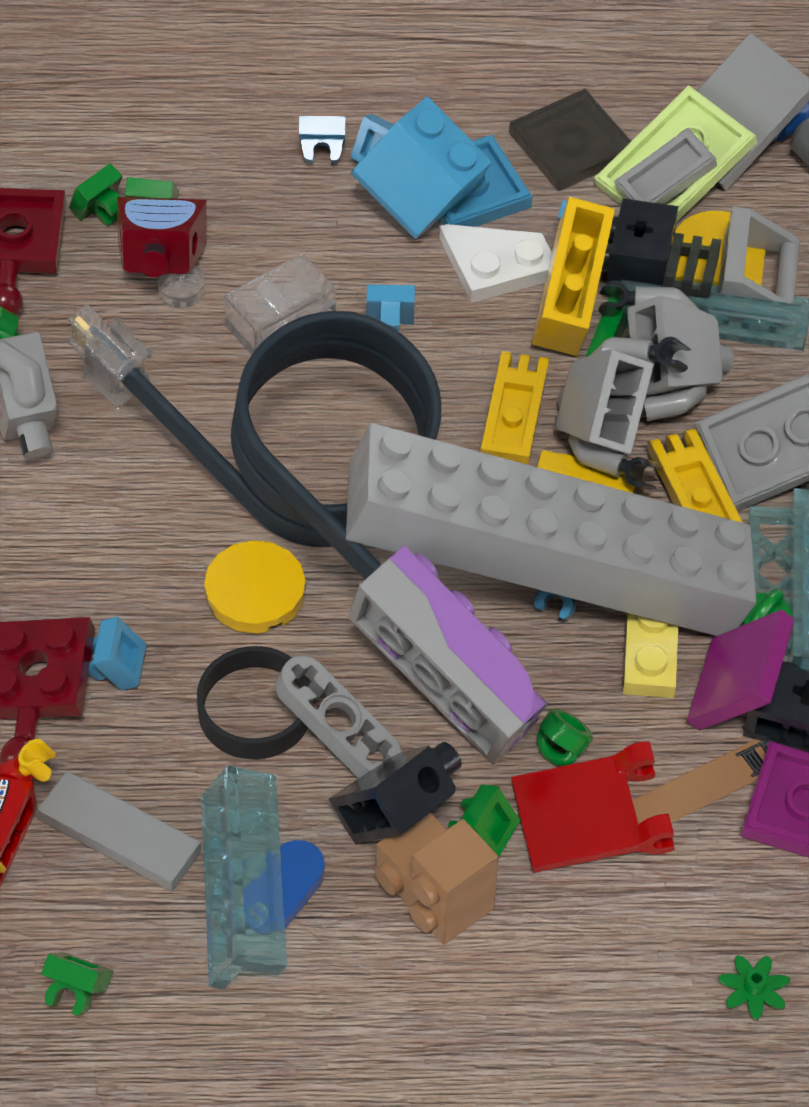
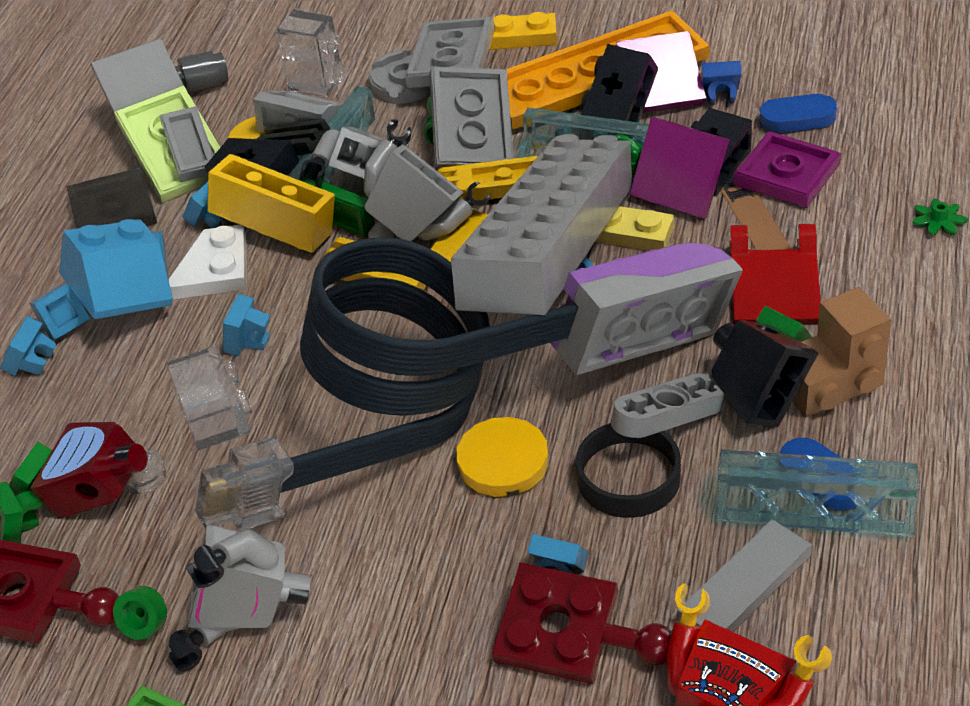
camera: 70 degrees left, 10 degrees down
(77, 975) = (906, 622): green tile -> none

